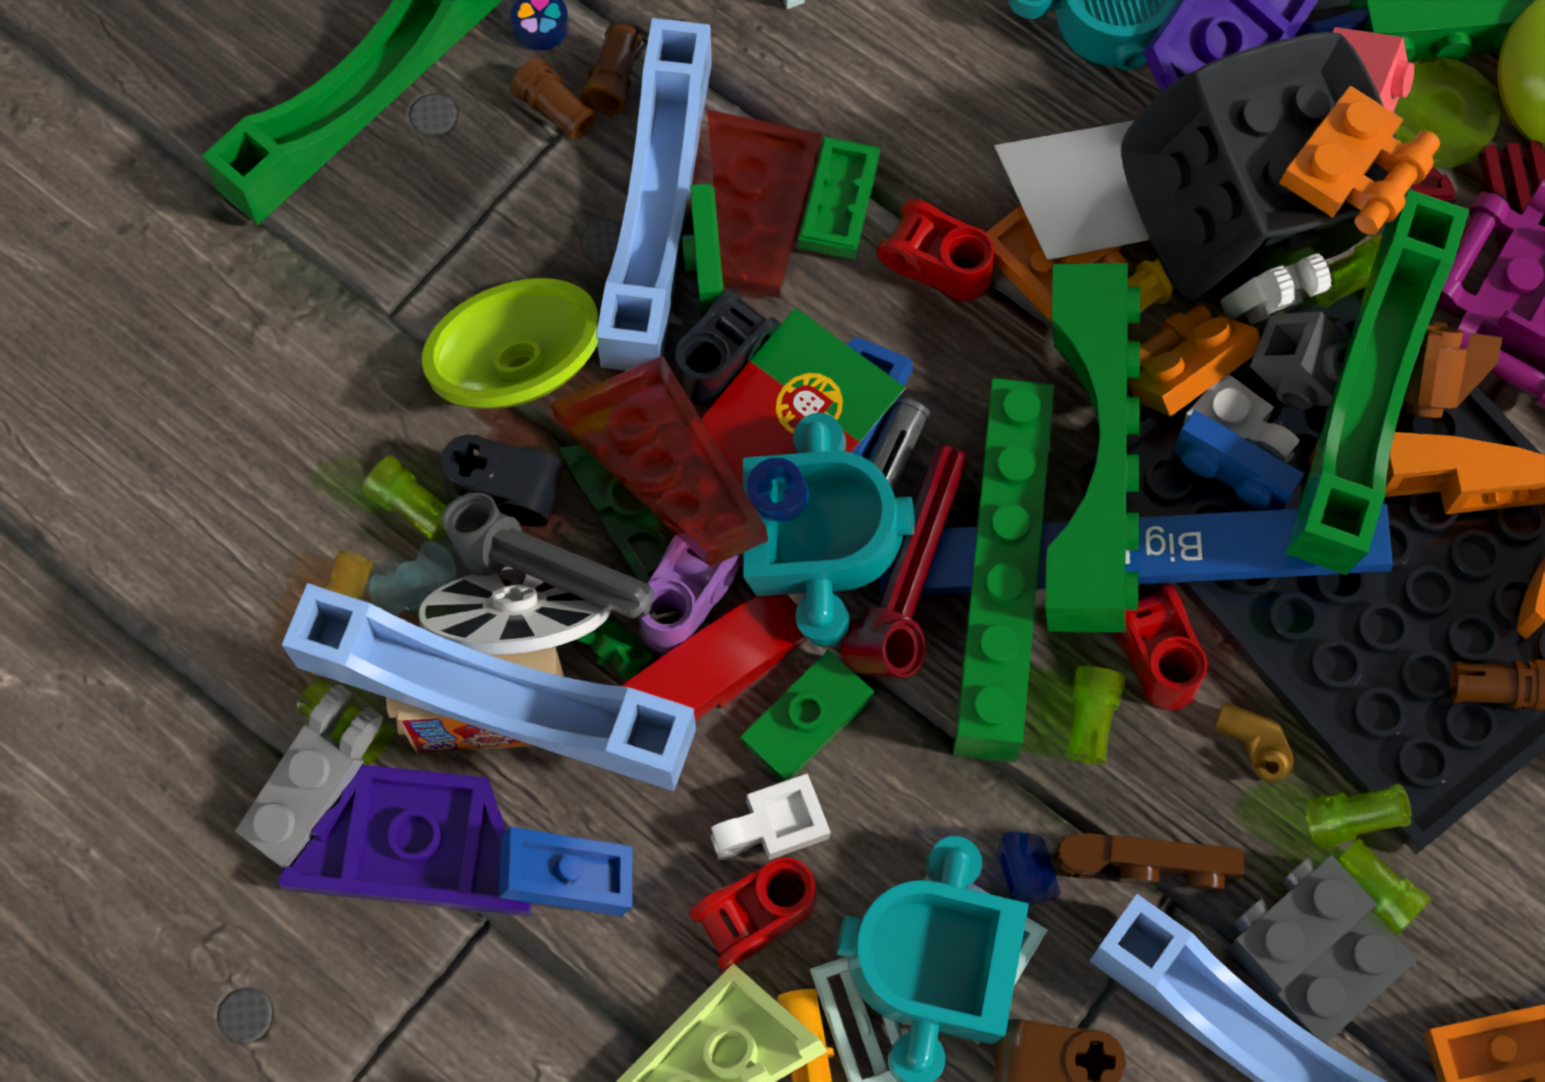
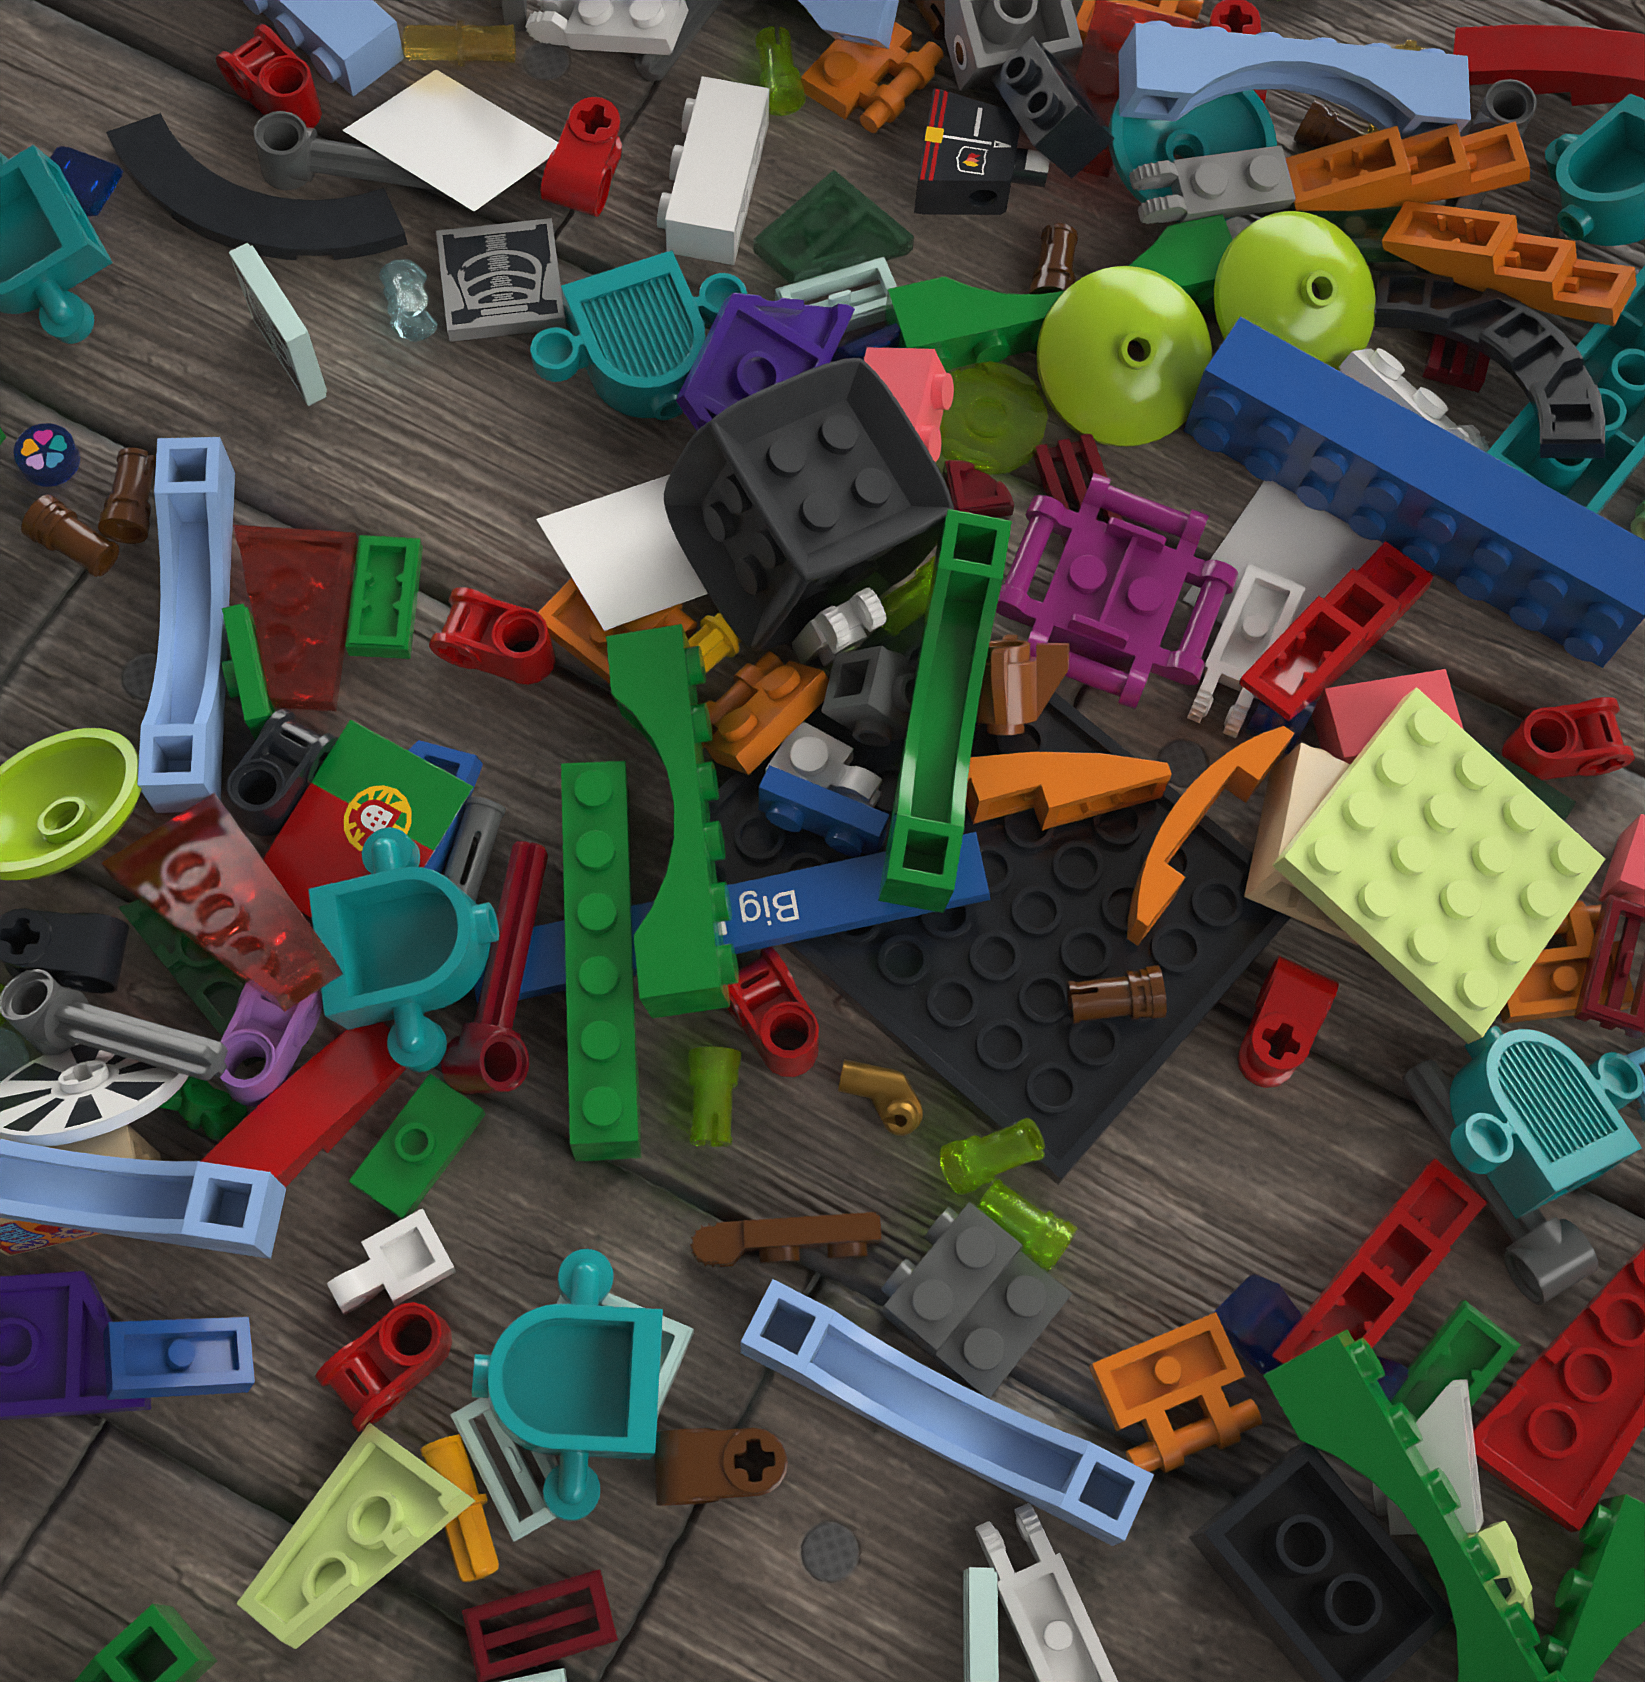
camera: 15 degrees left, 0 degrees up
(793, 498) = (363, 926): clear blue bush -> none
(1027, 868) = (666, 1267): clear blue slope -> none
(1343, 150) = (876, 479): orange plate -> none

